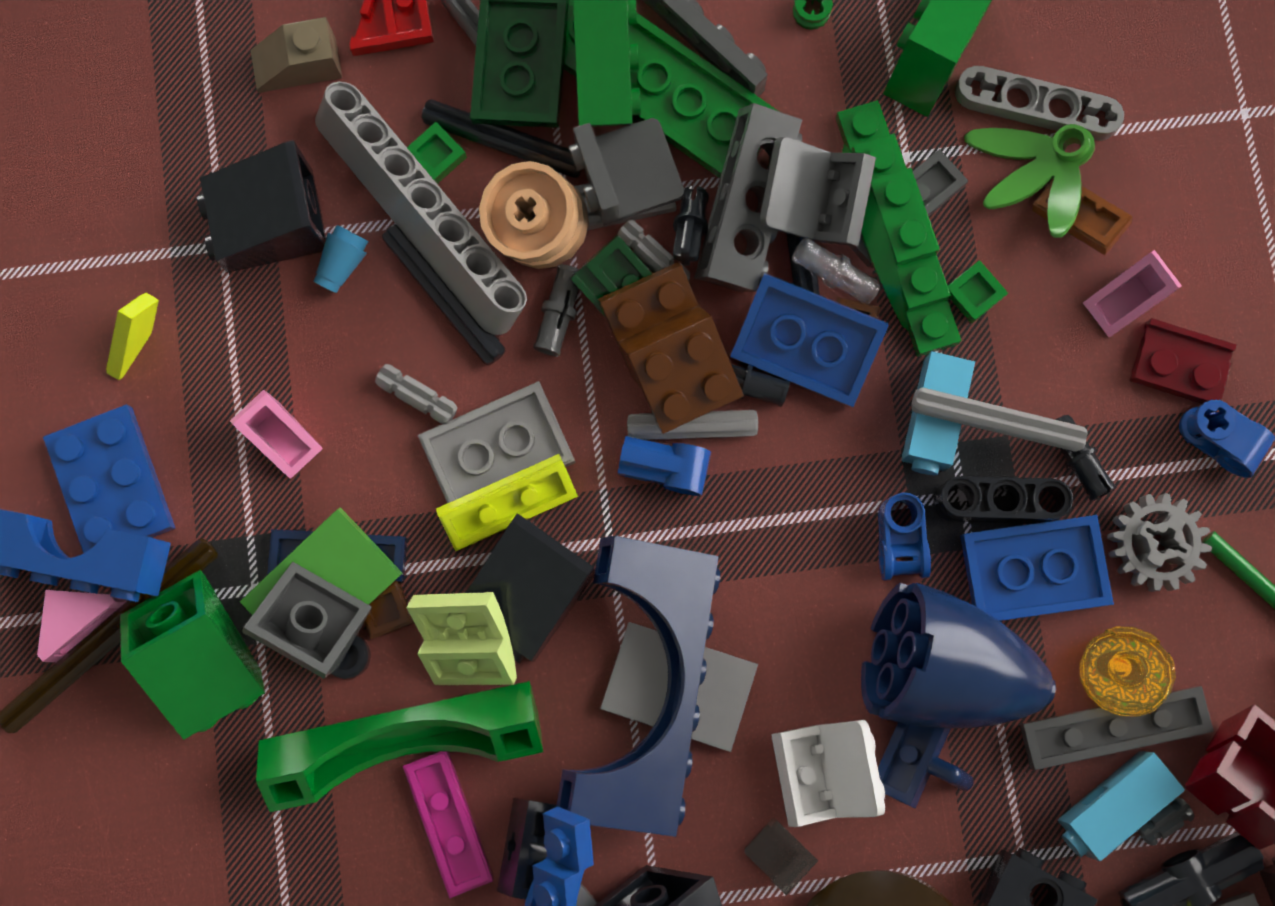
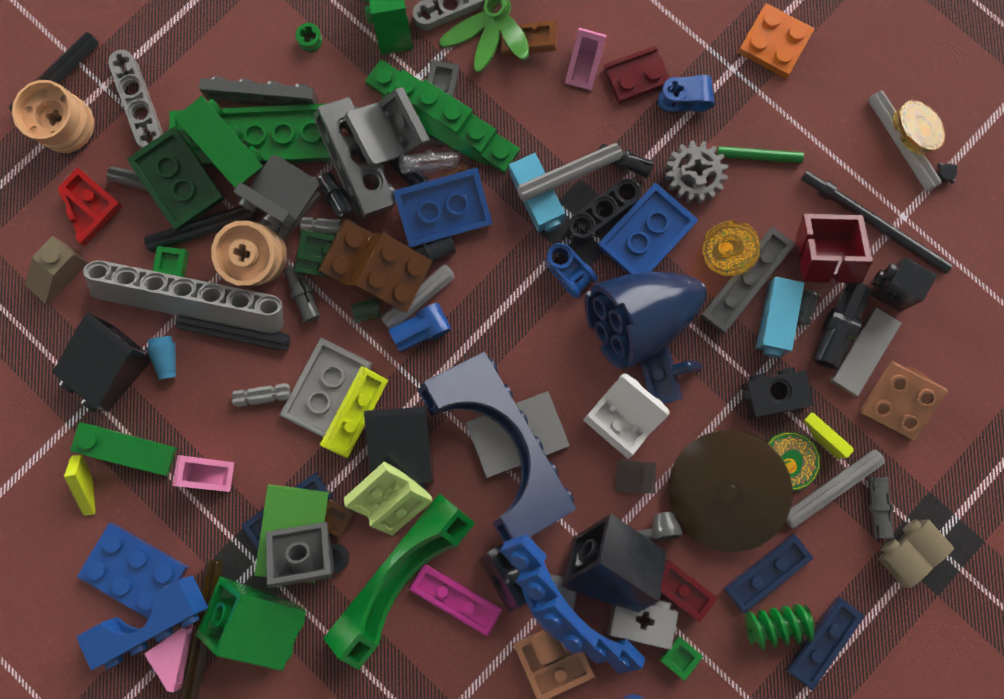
camera: 40 degrees left, 0 degrees up
(209, 330) = (123, 449): none -> green slope
(618, 392) = (366, 310): none -> clear green hinge
(976, 291) = (507, 118): green plate -> none

